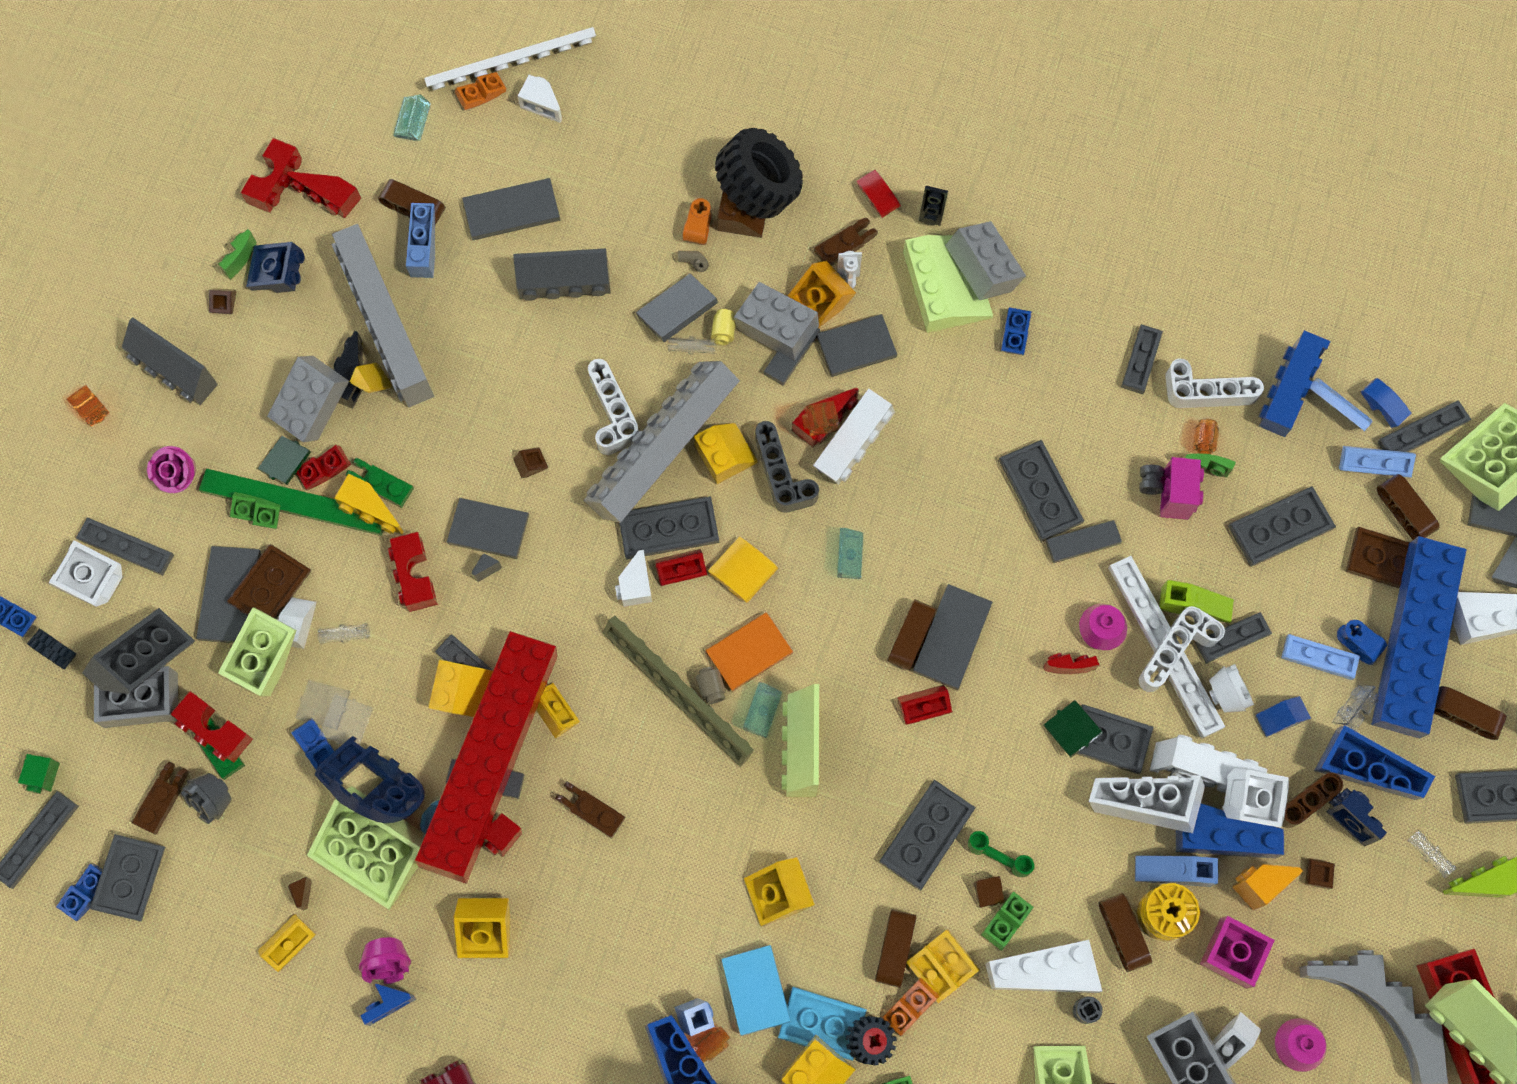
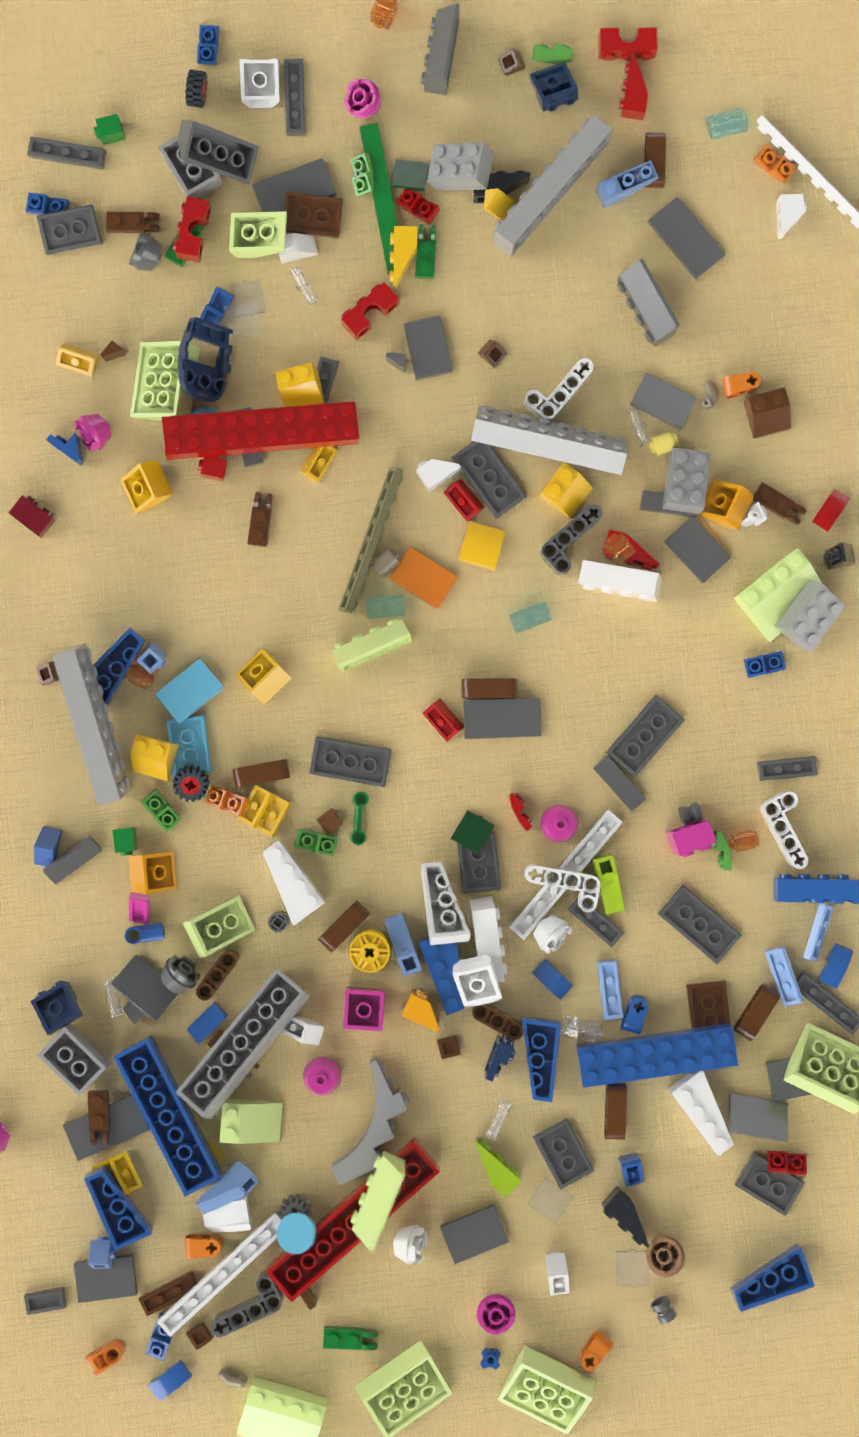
camera: 60 degrees right, 15 degrees up
(758, 173) = (782, 401): black tyre -> none

